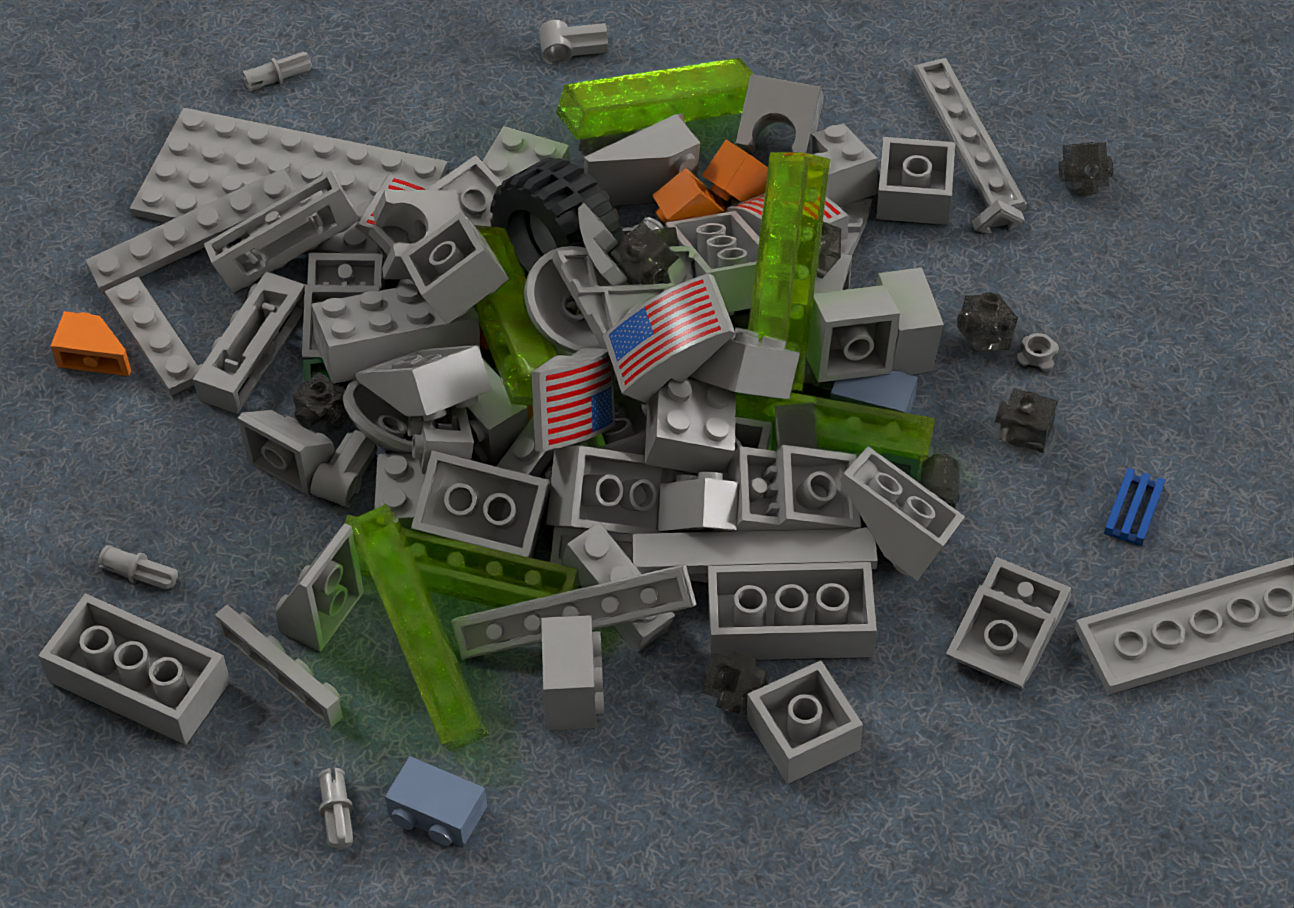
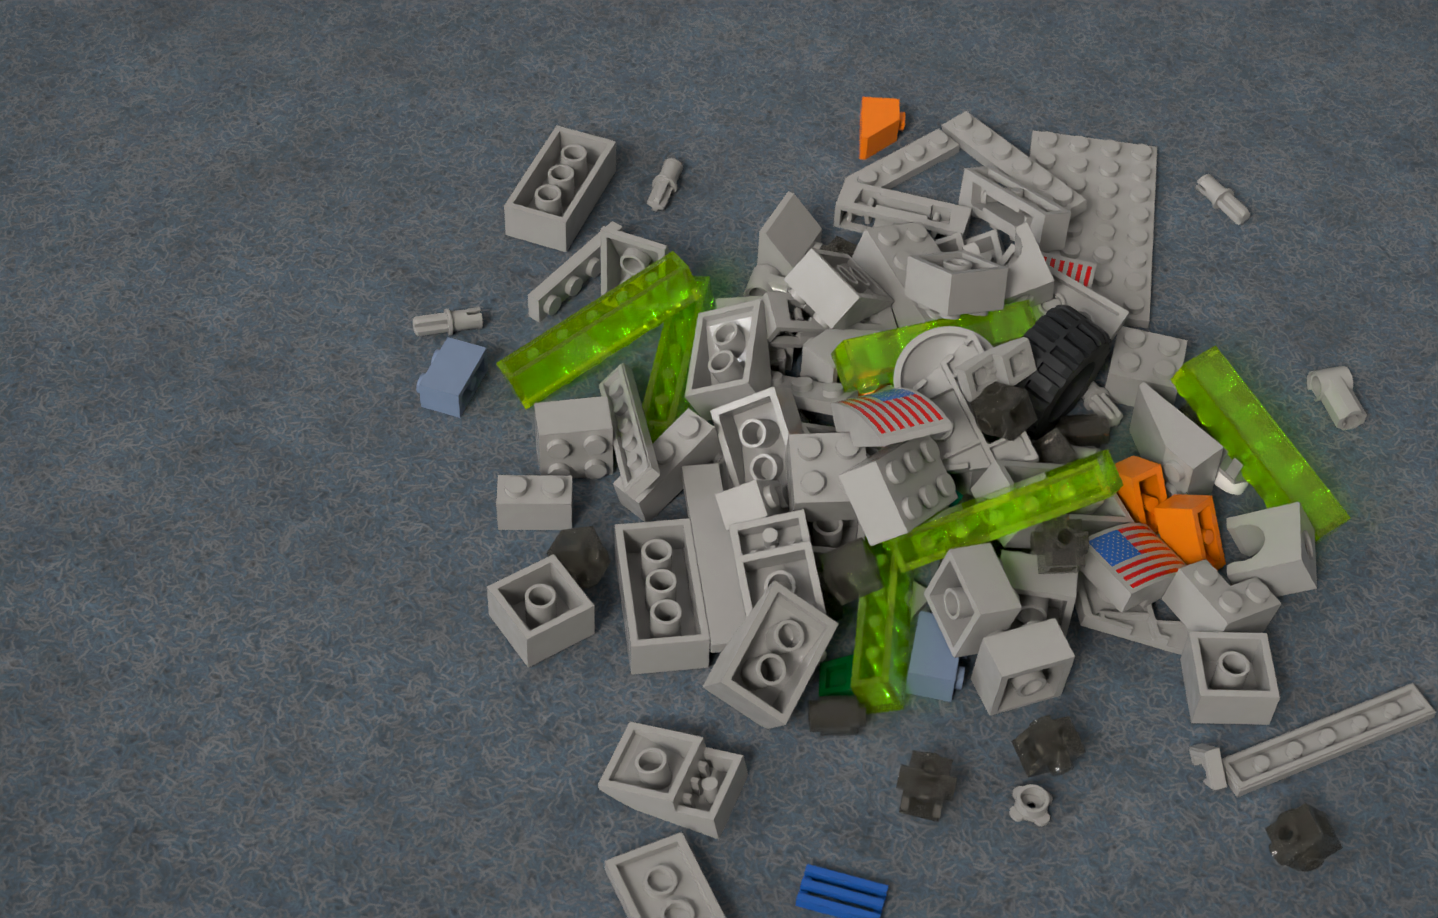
camera: 80 degrees right, 5 degrees down
(573, 398) = (821, 369): light grey slope -> none
(646, 723) = (534, 502): none -> light grey brick

